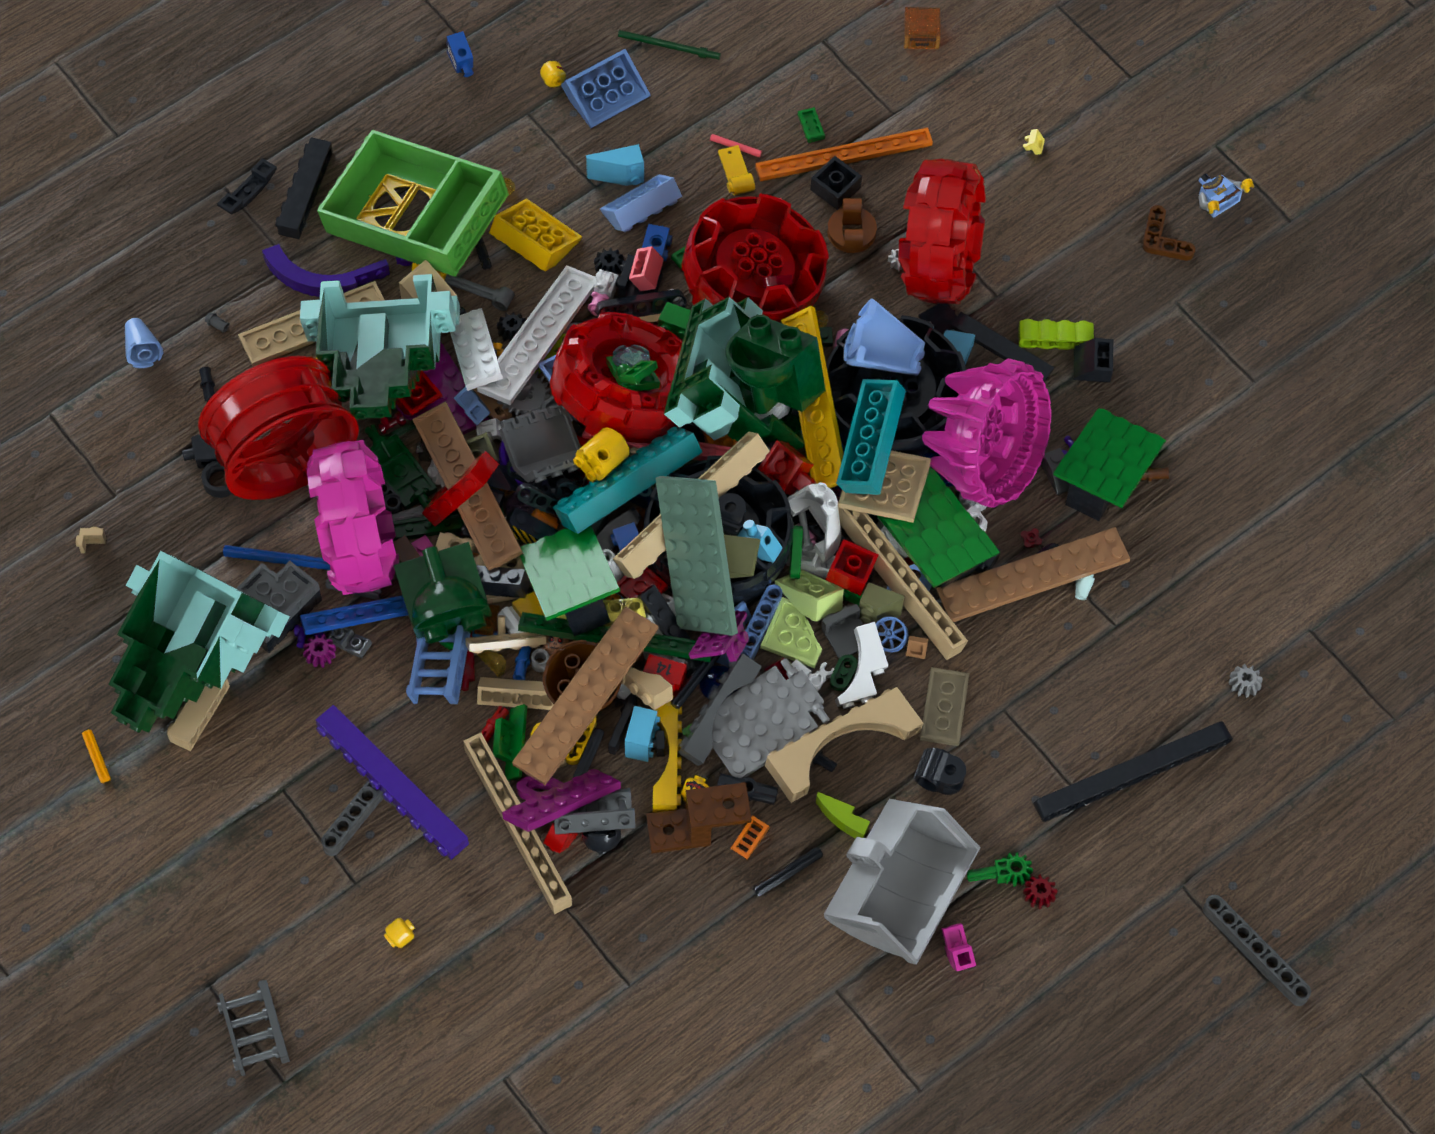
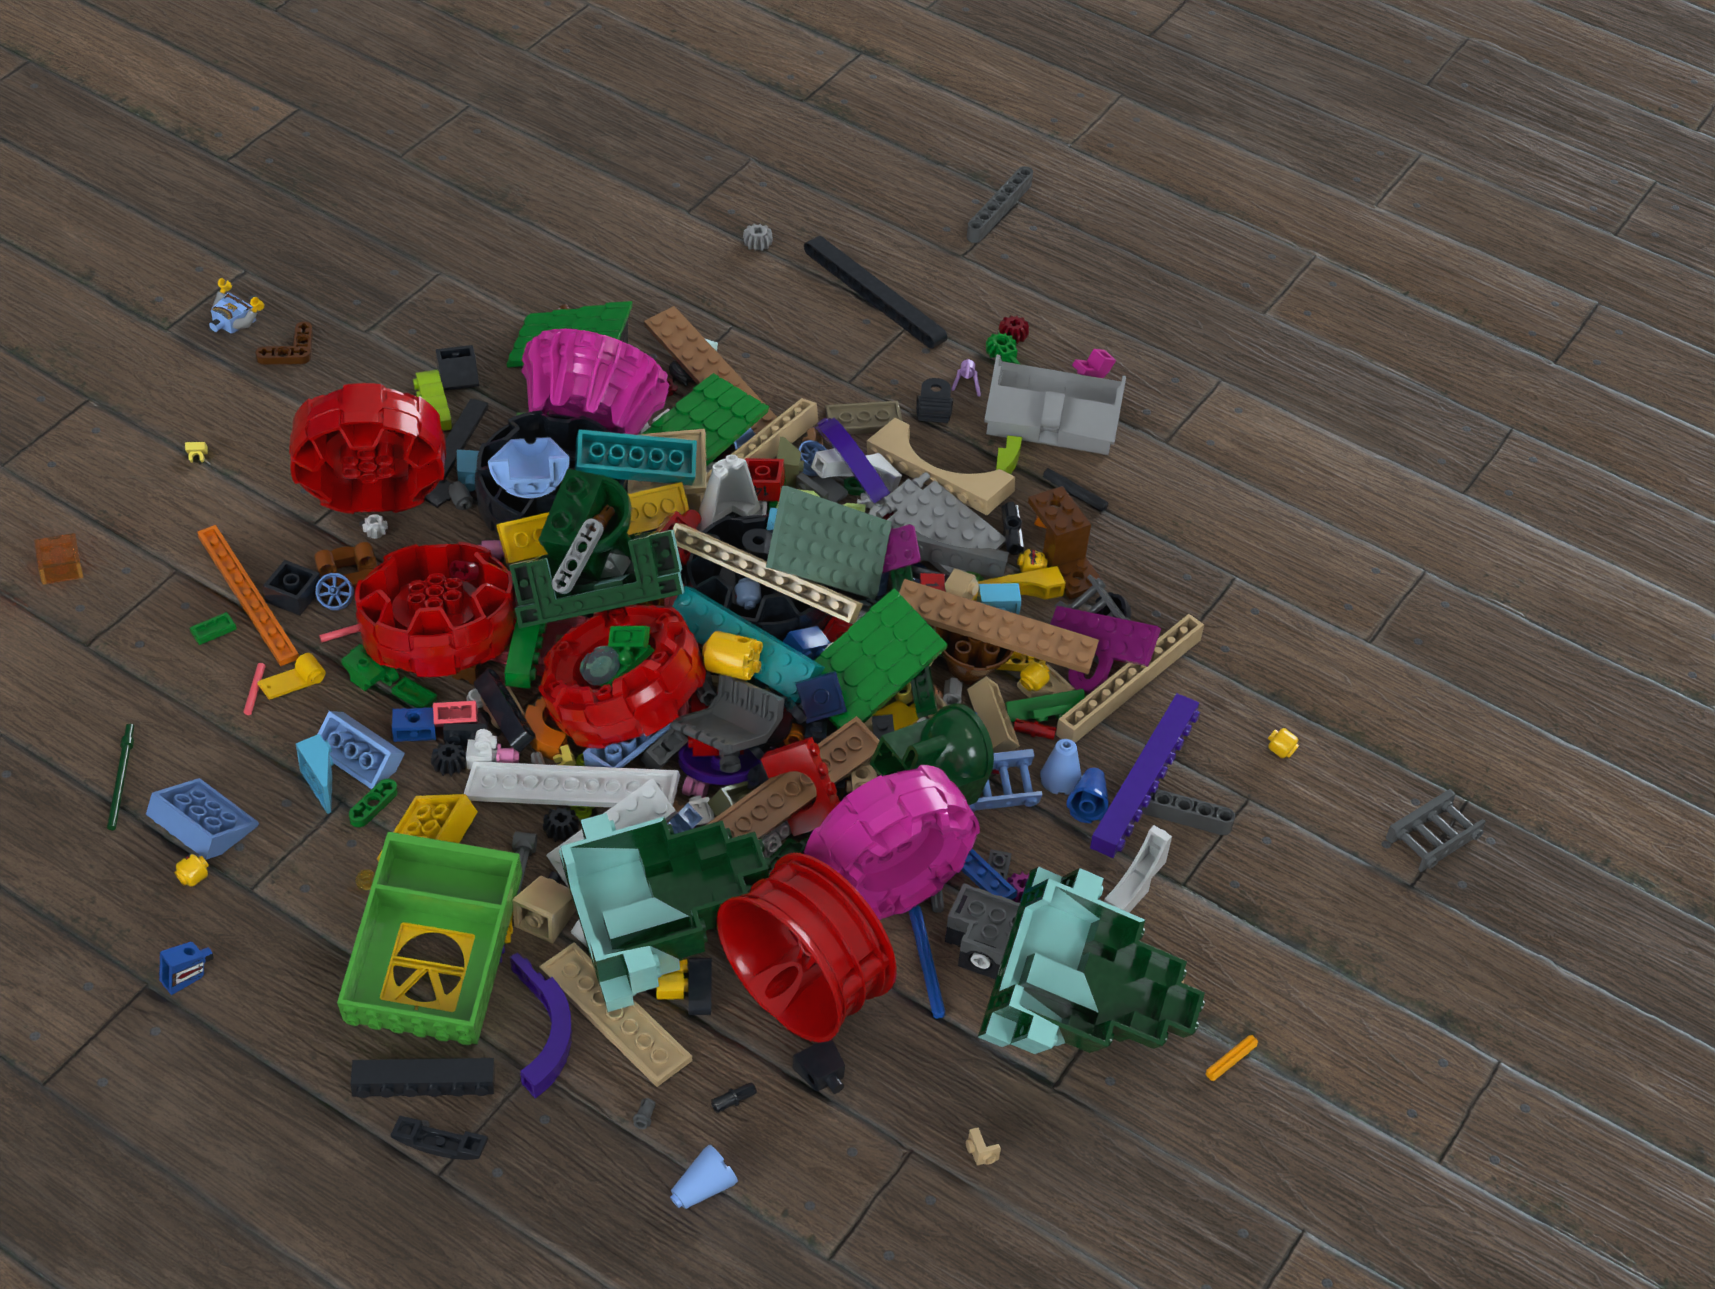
camera: 110 degrees left, 15 degrees down
(210, 469) = (857, 1029): black tyre -> none
(288, 738) = (1138, 877): none -> white arch
(398, 739) = (1089, 797): none -> blue cone
(433, 727) = (1062, 768): none -> light blue cone
(547, 523) = (821, 696): none -> dark blue tile
(585, 213) = (371, 811): none -> green beam
(722, 334) = (574, 554): none -> light grey beam
(755, 358) = (603, 517): none -> reddish brown pin
(821, 212) = (334, 591): none -> medium blue wheel
(867, 645) = (853, 457): none -> dark purple arch
(987, 824) = (967, 371): none -> lavender plant

